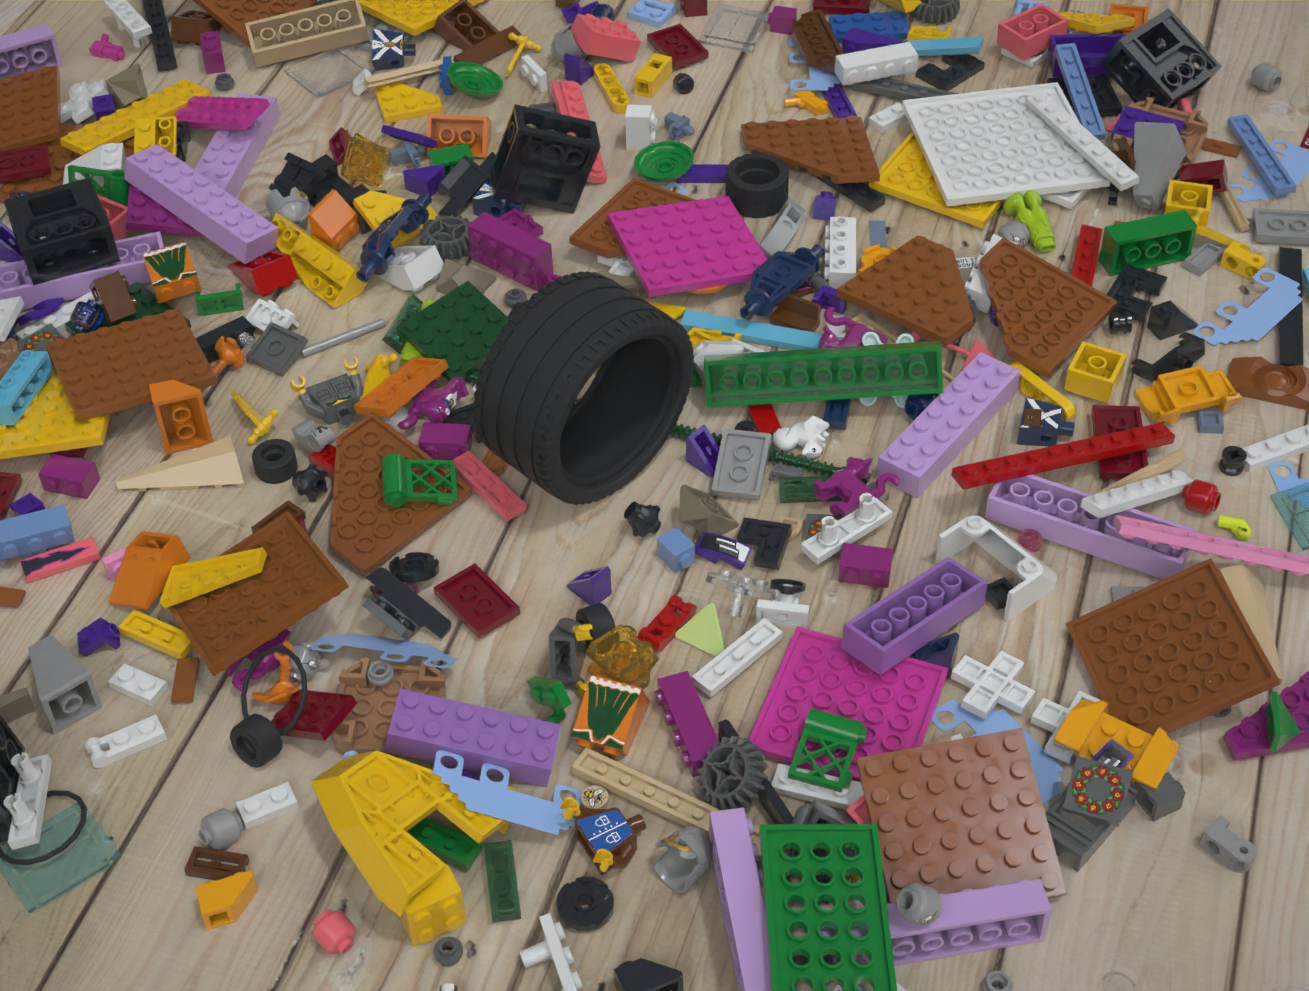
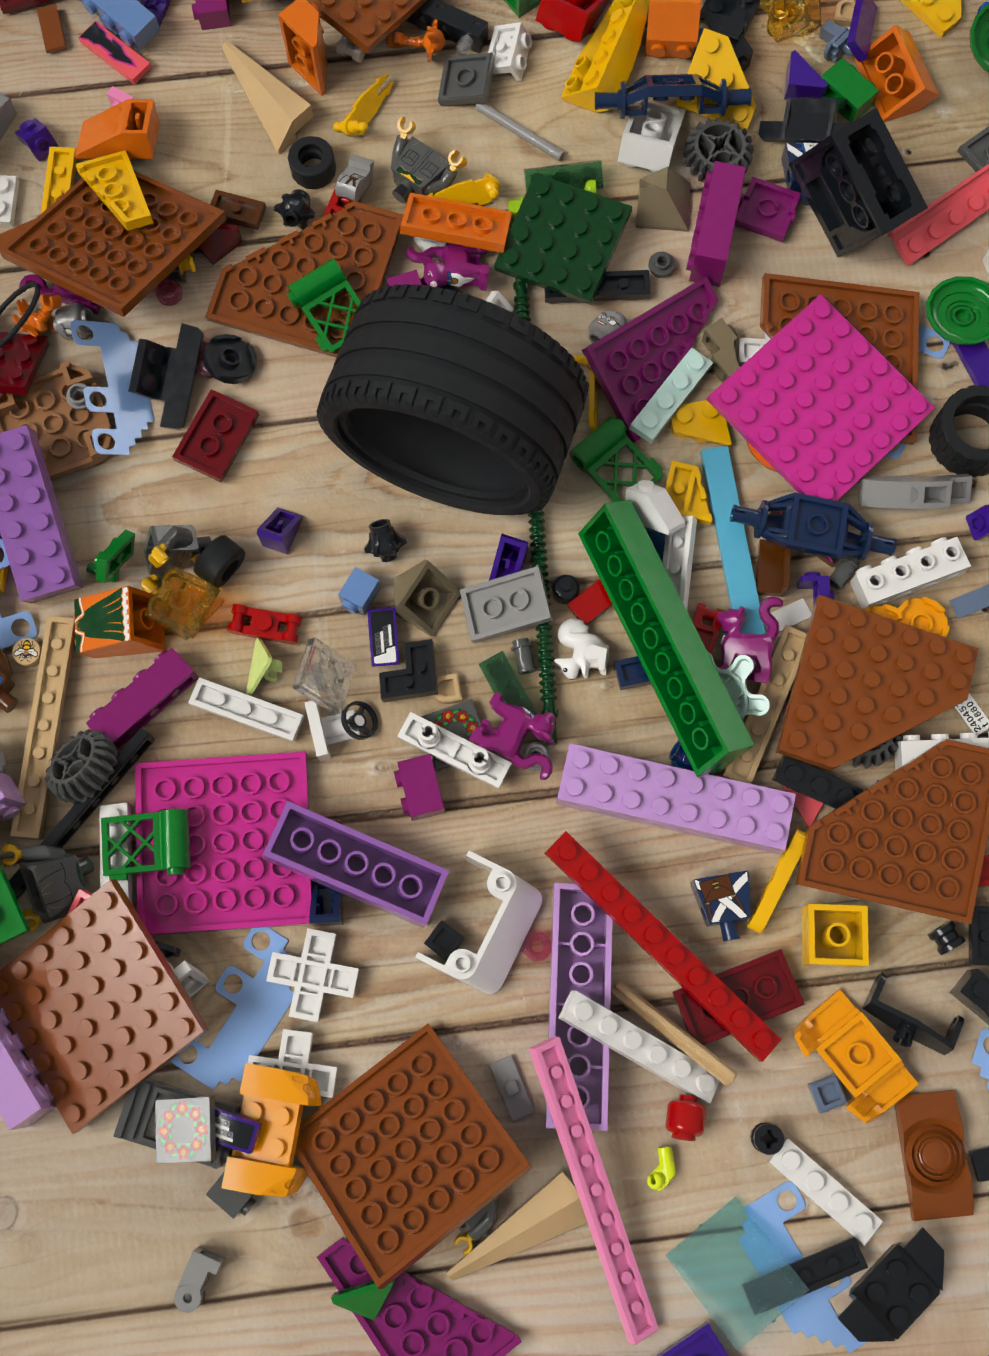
camera: 65 degrees right, 30 degrees up
(984, 341) = (814, 782): none -> black plate

